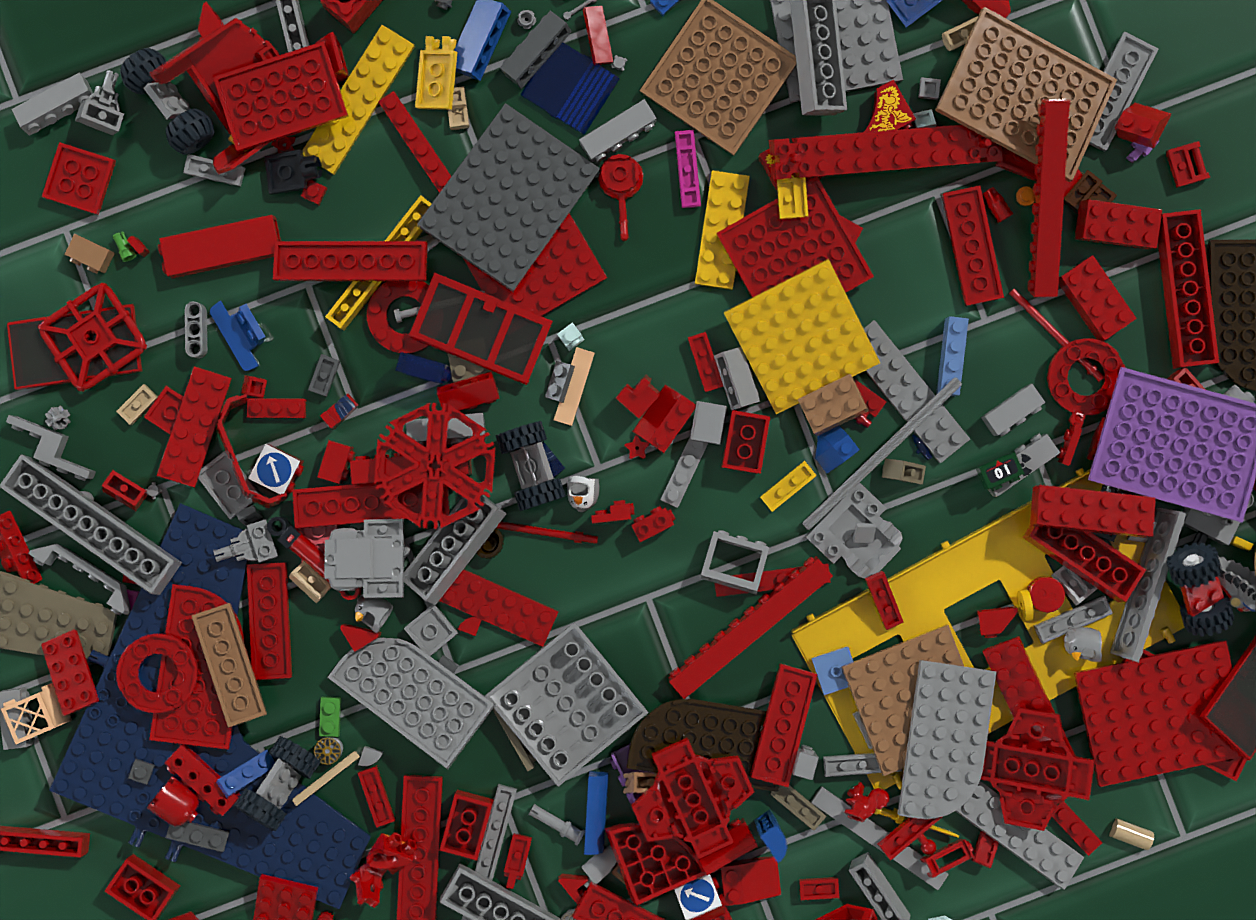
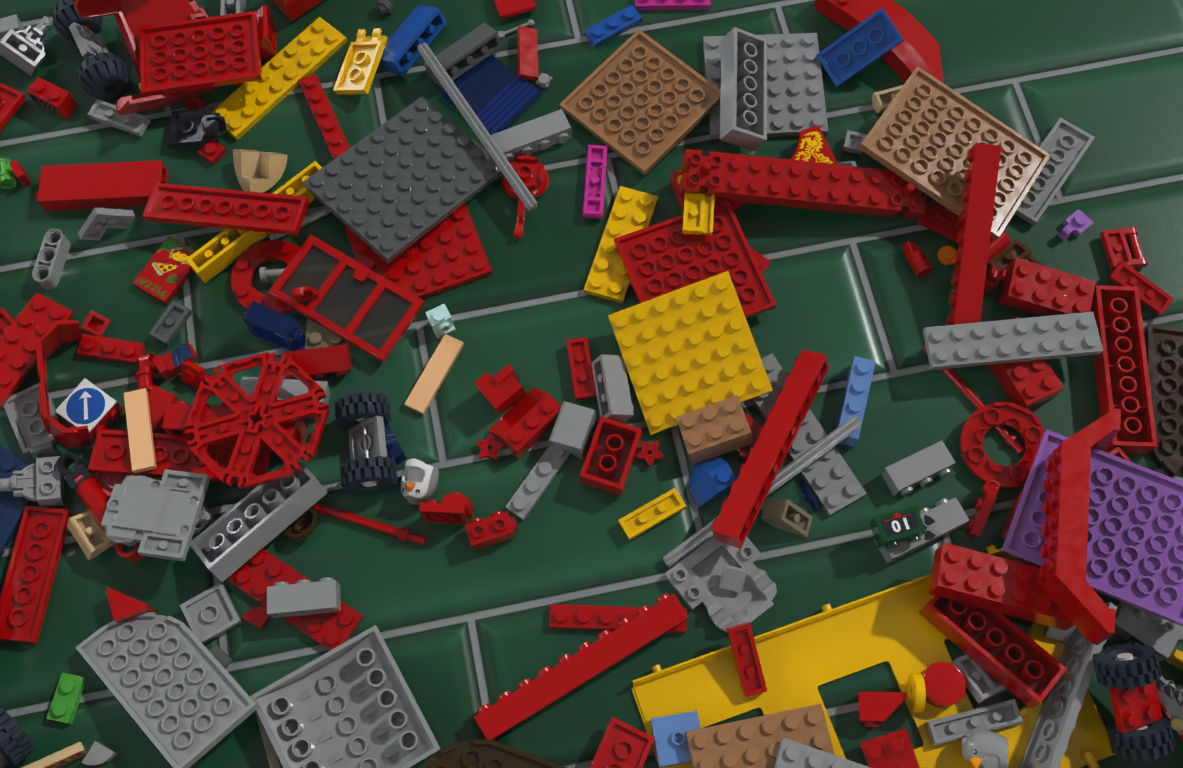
camera: 10 degrees right, 20 degrees down
(143, 160) = (52, 98): none -> red brick
(234, 286) = (102, 219): none -> light grey plate
(240, 333) = (96, 269): blue plate -> none
(305, 322) = (165, 270): none -> tile
(316, 431) = (146, 373): none -> red connector
(328, 749) = (51, 737): wheel -> none
(330, 486) = (140, 431): none -> light nougat tile
(362, 424) = (193, 374): none -> red plate
(364, 207) = (258, 170): none -> tan brick
(373, 612) = (150, 579): light grey piece -> none
(444, 335) = (304, 293): none -> red tile
(459, 114) = (375, 99): tan slope -> none
(508, 608) = (303, 598): none -> light grey brick
(526, 14) = (460, 27): light grey plate -> none
(559, 381) = (419, 365): dark grey plate -> none
(566, 132) = (477, 126): none -> light grey axle
(731, 581) = (568, 606): light grey window -> none
(783, 431) = (649, 458): none -> red plate
(885, 414) = (770, 449): none -> red brick
(972, 245) = (886, 295): red plate -> none
(1069, 217) = (992, 279): none -> red plate
(1089, 282) = (1012, 340): none -> light grey plate
(1141, 455) = (1067, 529): none -> red slope
(1142, 124) = (1074, 203): red slope -> none
(1210, 208) = (1149, 294): none -> red plate

